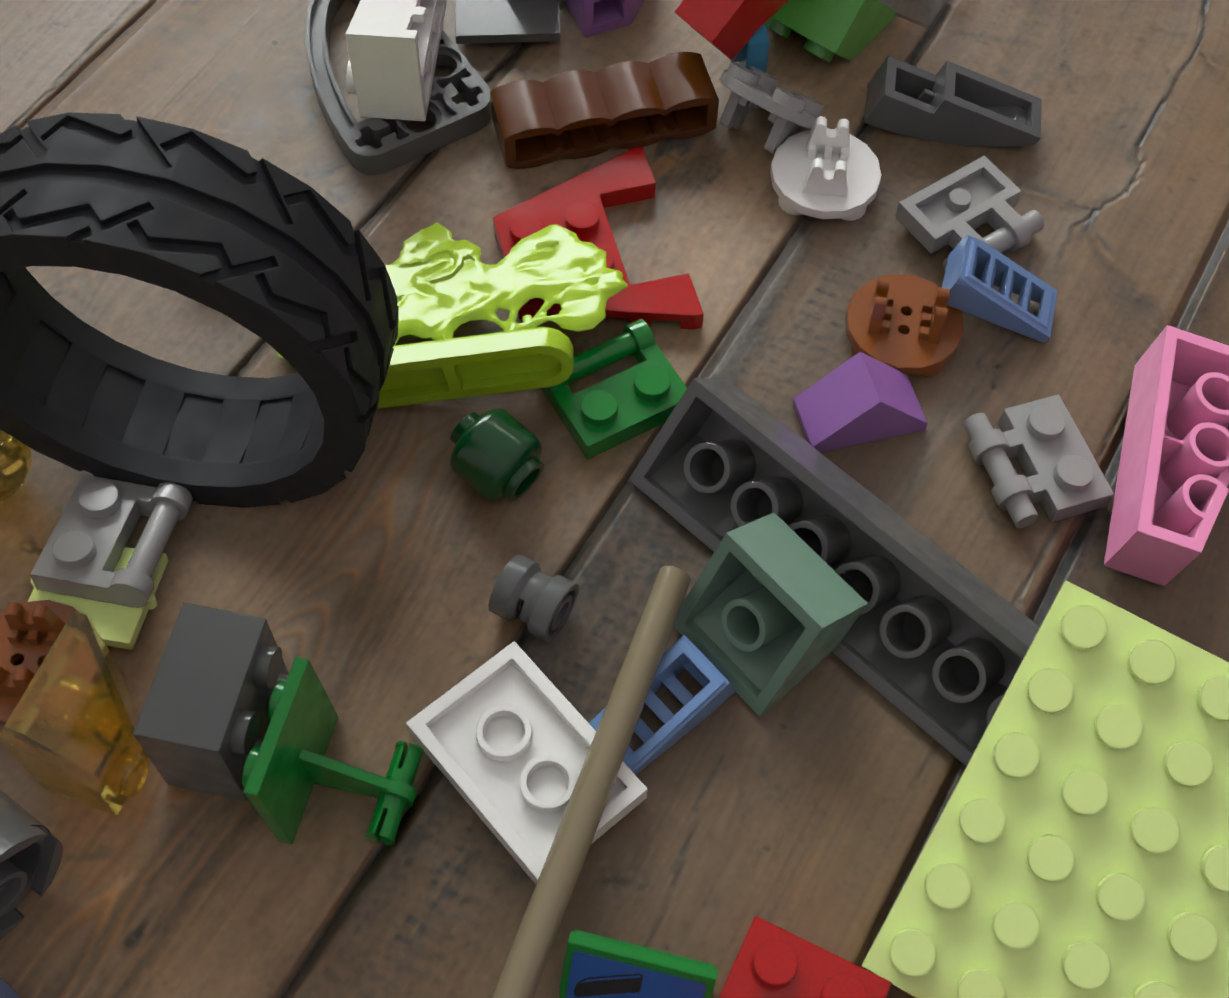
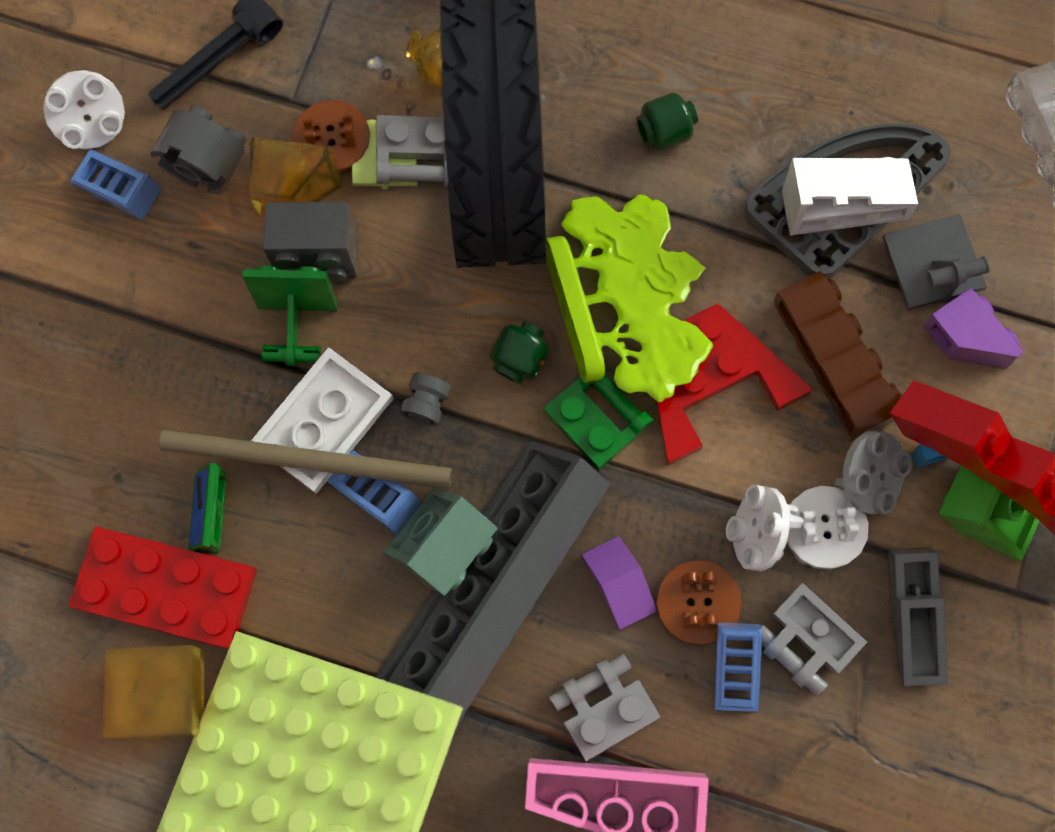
camera: 85 degrees right, 15 degrees up
(810, 197) = (761, 527): none -> white plate

